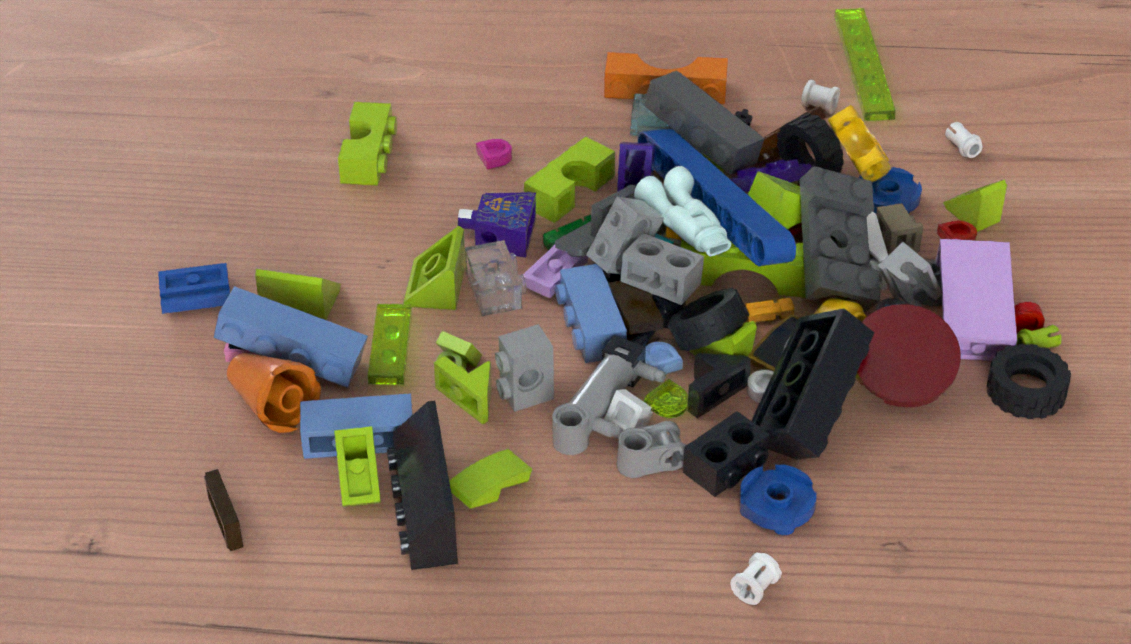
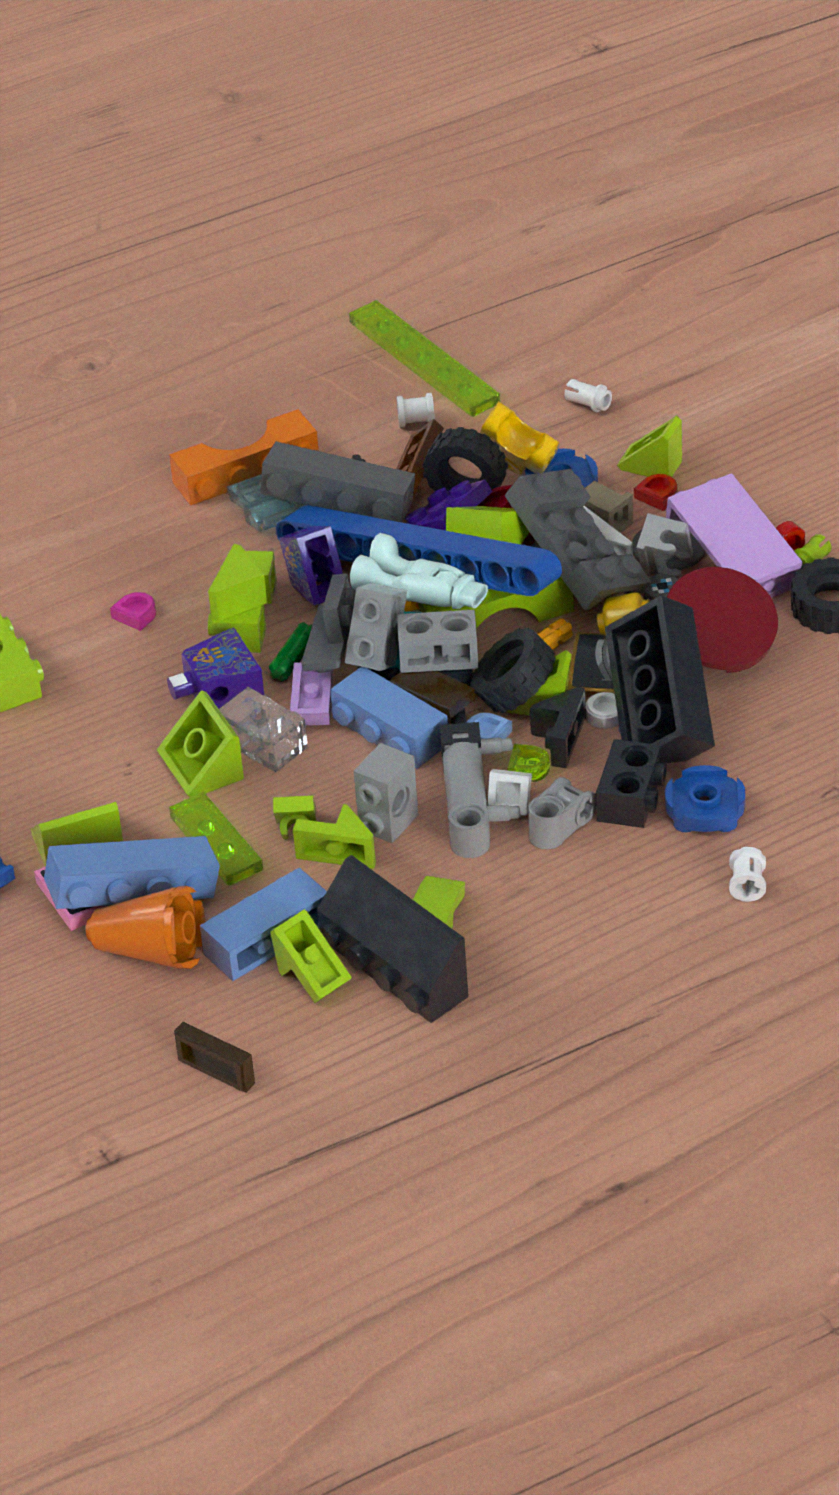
camera: 30 degrees left, 0 degrees up
(554, 162) = (237, 586): none -> lime slope

